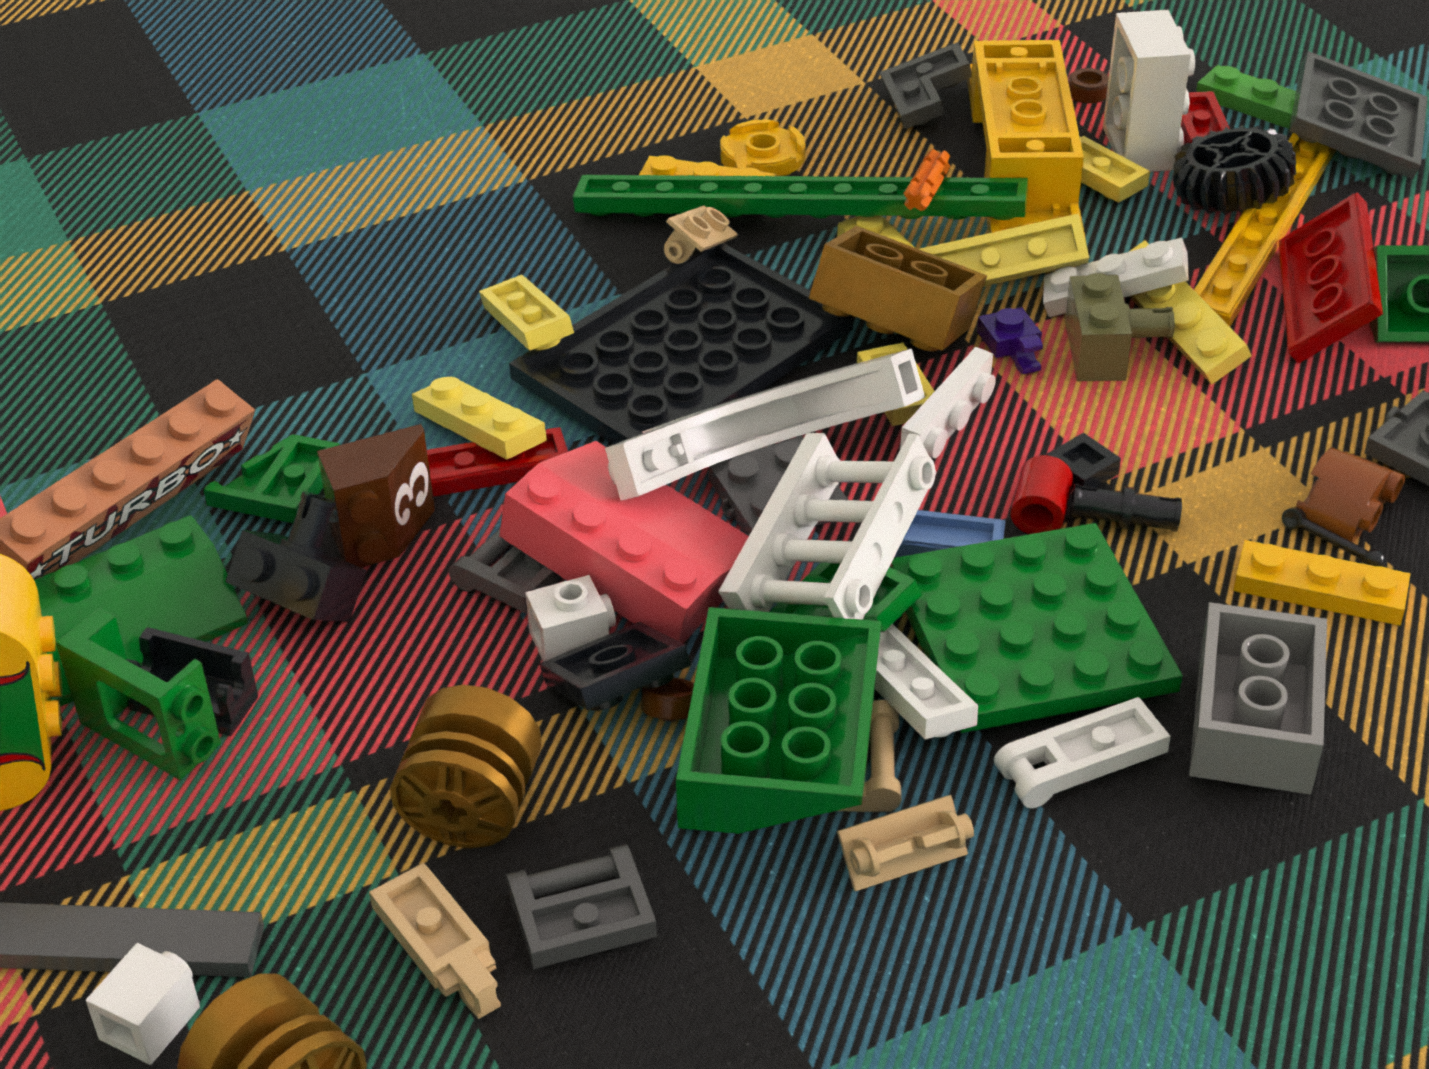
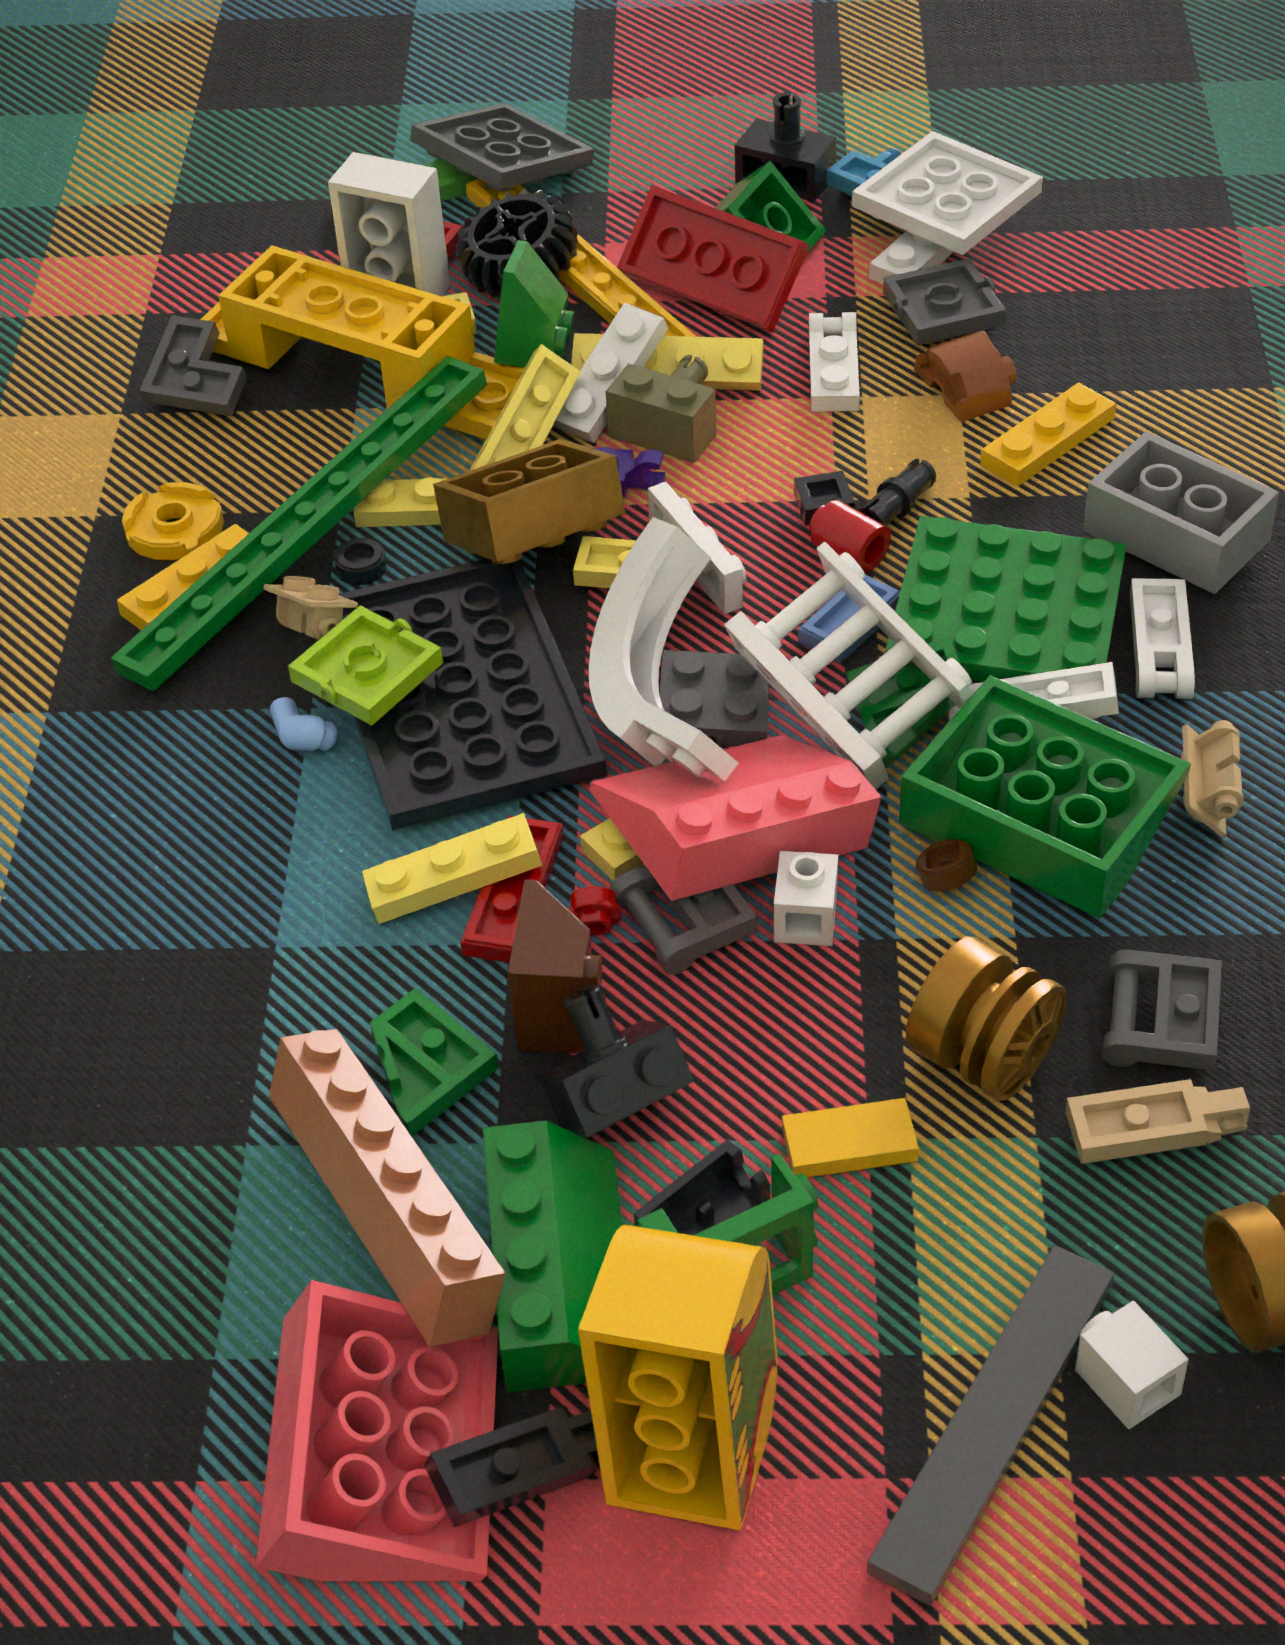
camera: 60 degrees left, 5 degrees up
(326, 747) = (850, 1138): none -> yellow tile
(483, 509) = (596, 908): none -> red plate
(527, 313) = (323, 773): light yellow plate -> none
(580, 291) = (301, 731): none -> light blue arm
(615, 665) = (898, 880): black plate -> none
(645, 282) = (366, 664): none -> lime plate
(792, 250) = (360, 561): none -> black tile
(927, 180) = (400, 414): orange axle -> none
(1134, 195) = (530, 309): none -> green slope
(1285, 409) = (833, 363): none -> white plate
(1295, 518) = (967, 415): black hinge -> none

